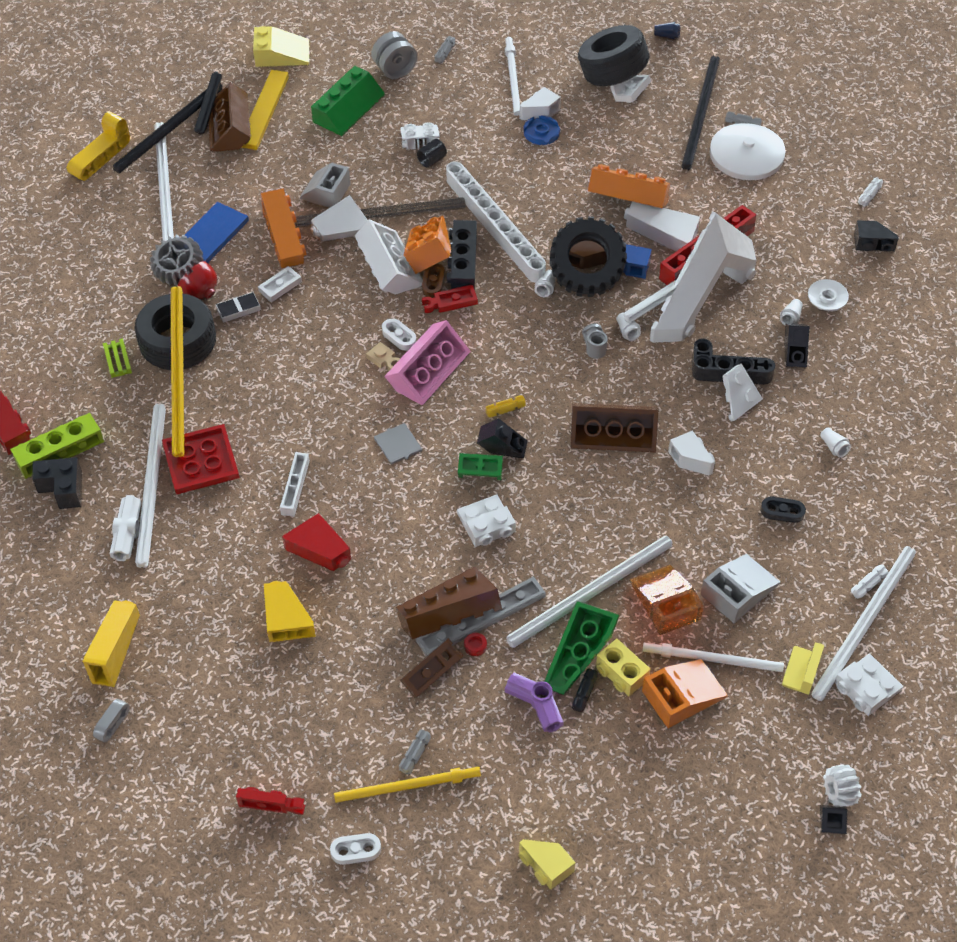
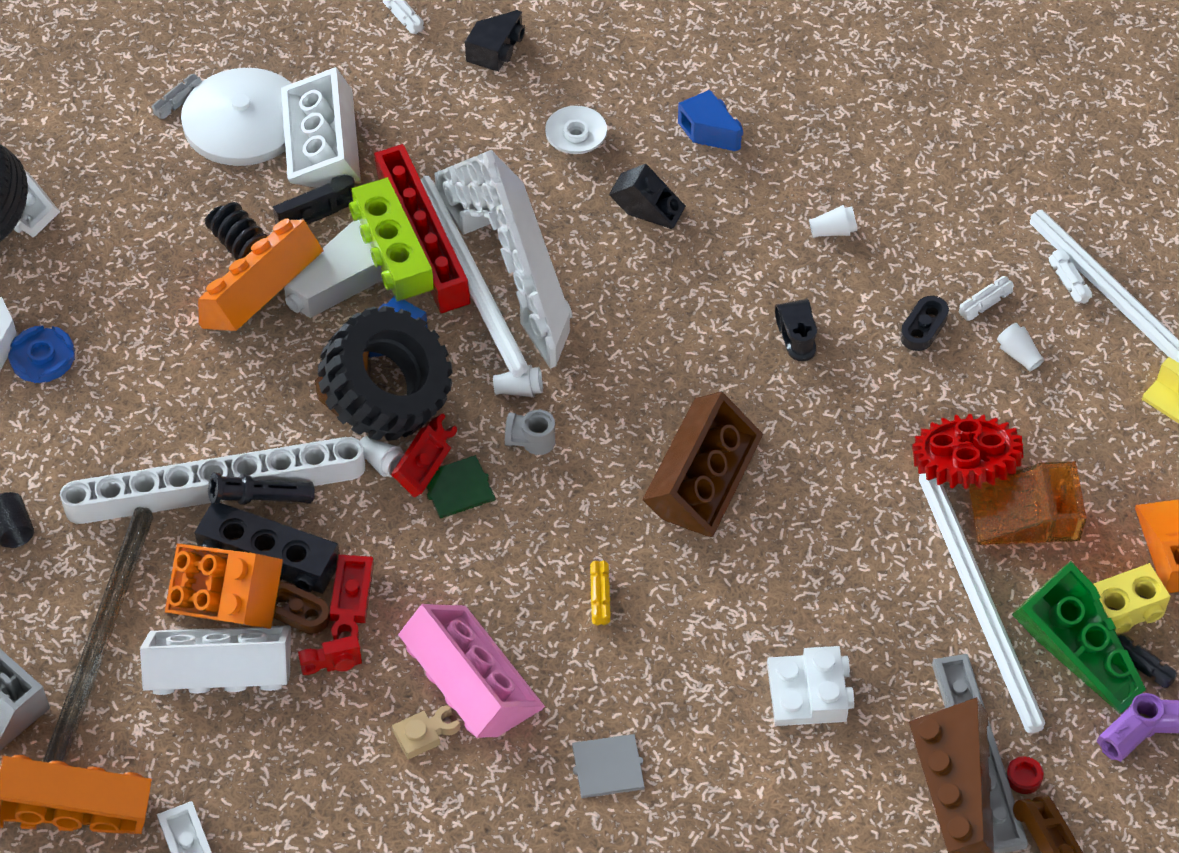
camera: 70 degrees left, 0 degrees up
(338, 221) = (99, 700): white slope -> none
(402, 335) = (387, 691): white plate -> none
(411, 304) = (334, 655): none -> red plate
(480, 465) = (714, 661): green hinge -> none
(489, 230) = (246, 489): none -> black pin
(501, 439) = (670, 616): black slope -> none
(546, 324) = (459, 487): none -> dark green piece
(553, 299) = (424, 456): none -> red plate
(664, 168) = (234, 229): none -> black piece
(666, 650) = (1109, 538): white bar -> none
(675, 543) = (968, 451): none -> red gear
(680, 230) = (391, 239): none -> lime brick
(691, 454) = (791, 390): white slope -> none
(699, 199) = (317, 202): none -> black hinge
(700, 113) = (129, 139): black axle -> none
(713, 367) = (642, 314): black beam -> none
(738, 587) = (1044, 416): light grey slope -> none
(740, 391) = (710, 291): white wing -> none
(741, 445) = (797, 328): none -> black piece
(751, 183) = (320, 130): none -> white slope
(791, 312) = (587, 183): white cone -> none
(794, 564) = (1020, 346): none -> white cone
(824, 539) = (986, 298): none -> white axle
(876, 355) = (709, 122): none -> blue slope

